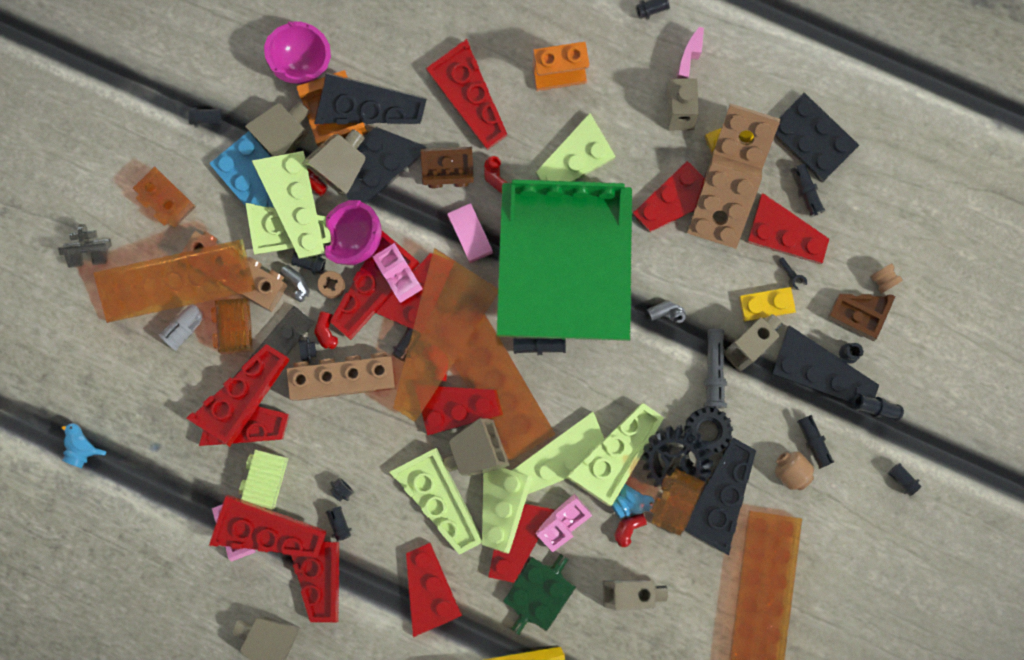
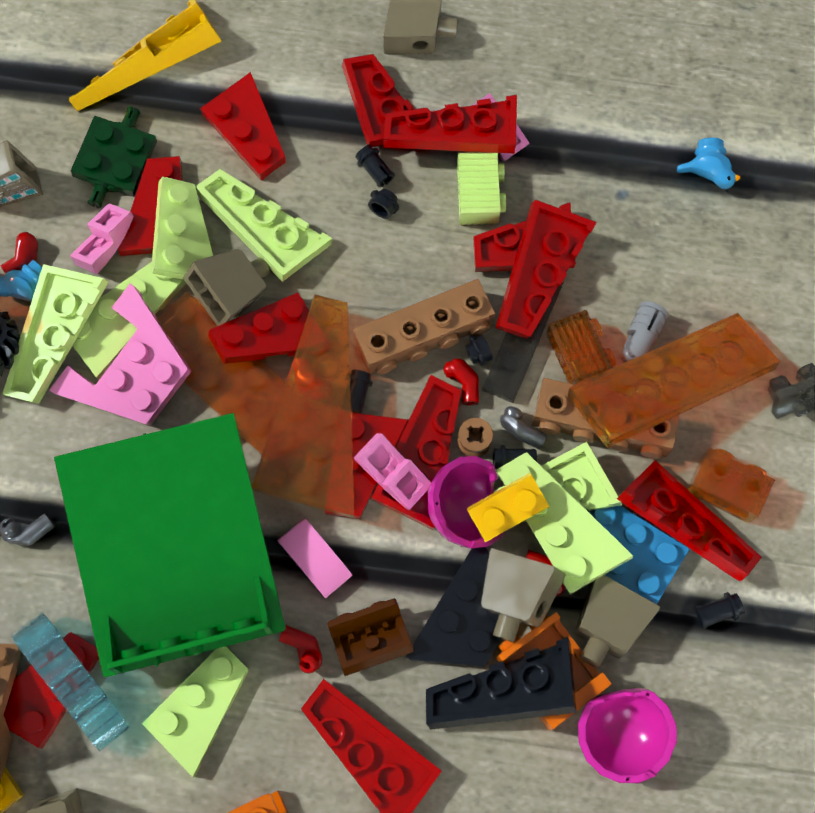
camera: 165 degrees right, 10 degrees down
(206, 185) = (684, 517): none -> red wing
(325, 218) = (507, 507): none -> yellow plate
(560, 399) = (140, 376): none -> bright pink wing
(657, 197) = (70, 681): none -> clear light blue beam

